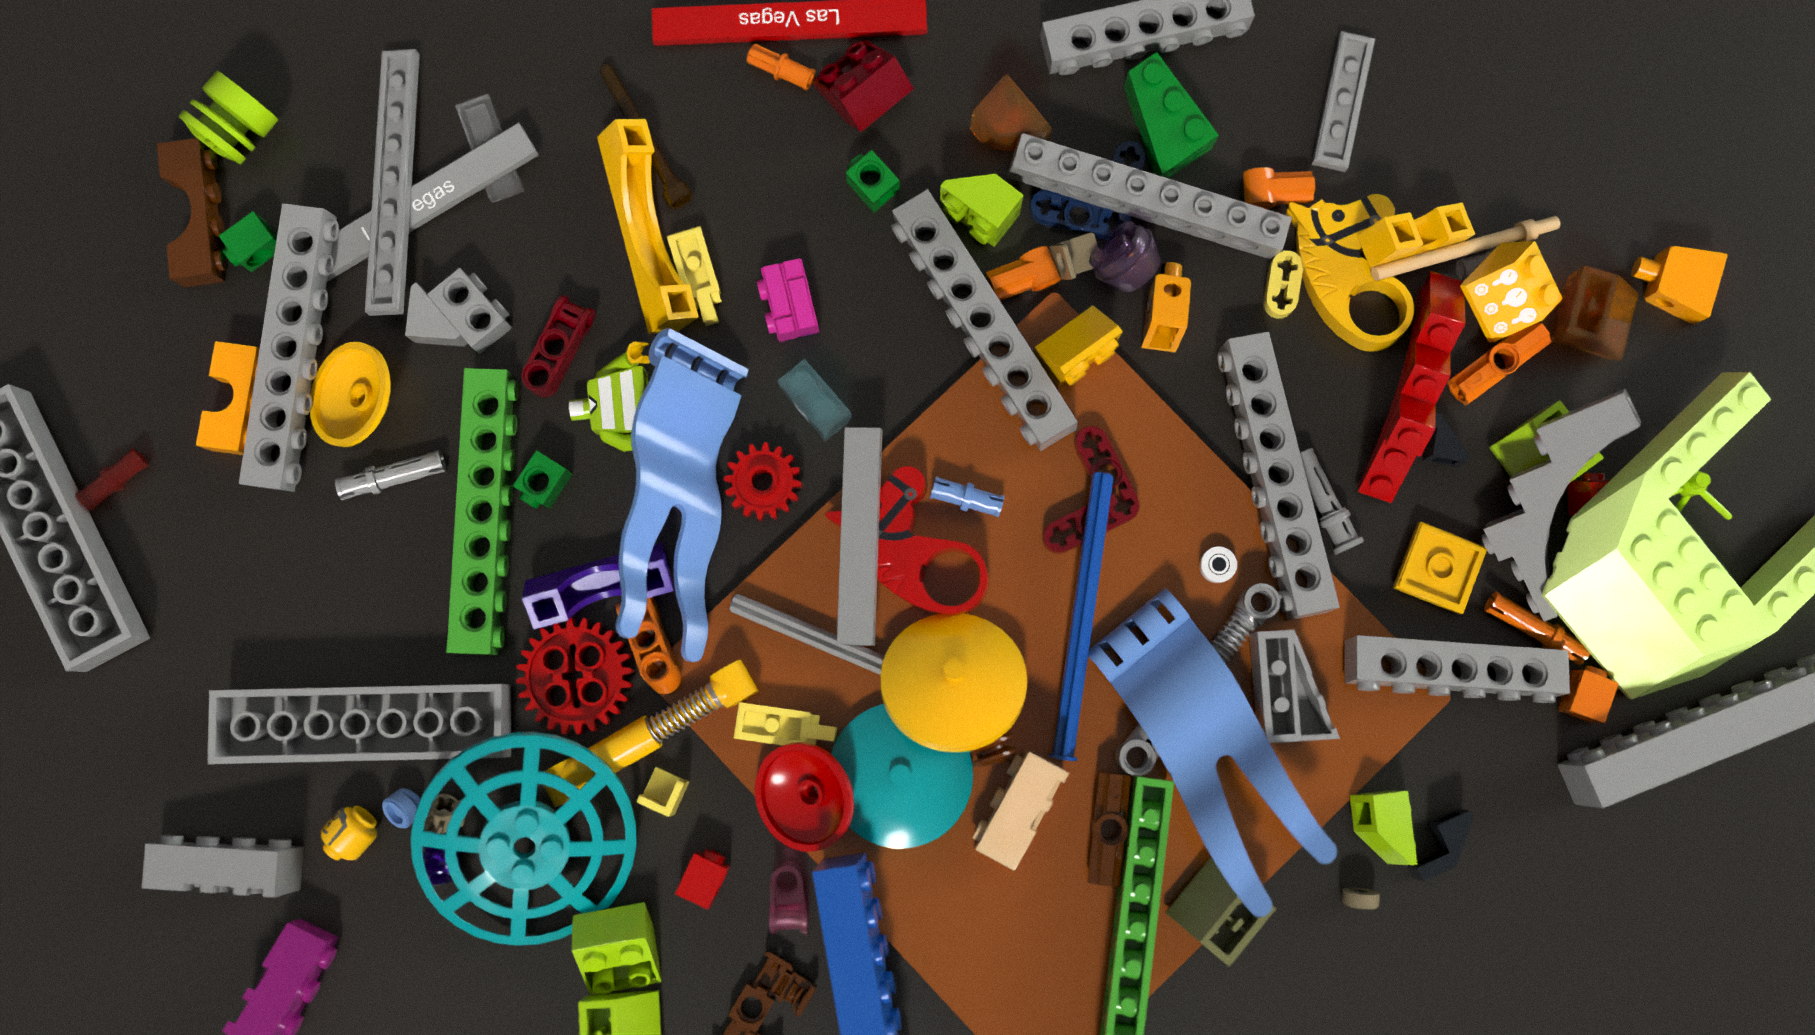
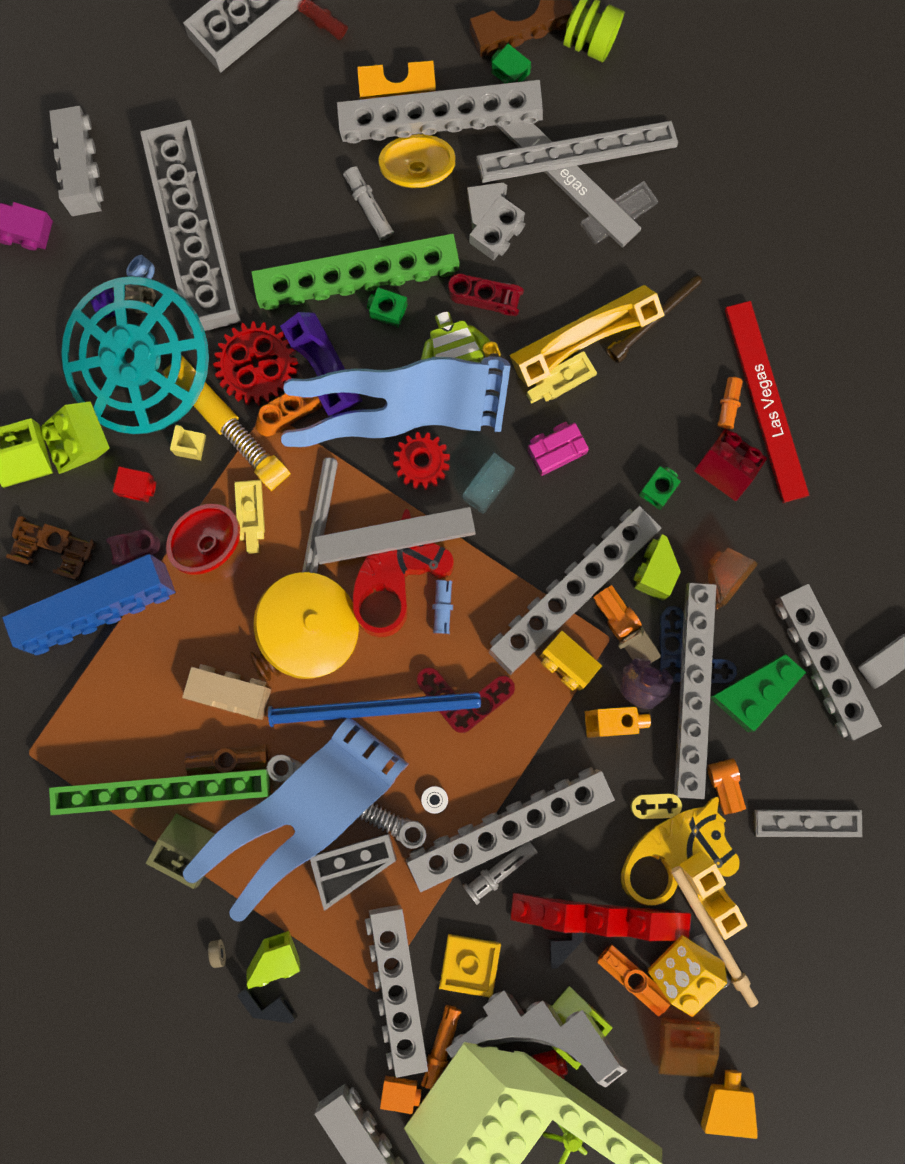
camera: 75 degrees right, 0 degrees up
(349, 833) = (115, 237): yellow head -> none
(898, 786) = (223, 604): teal dish -> none

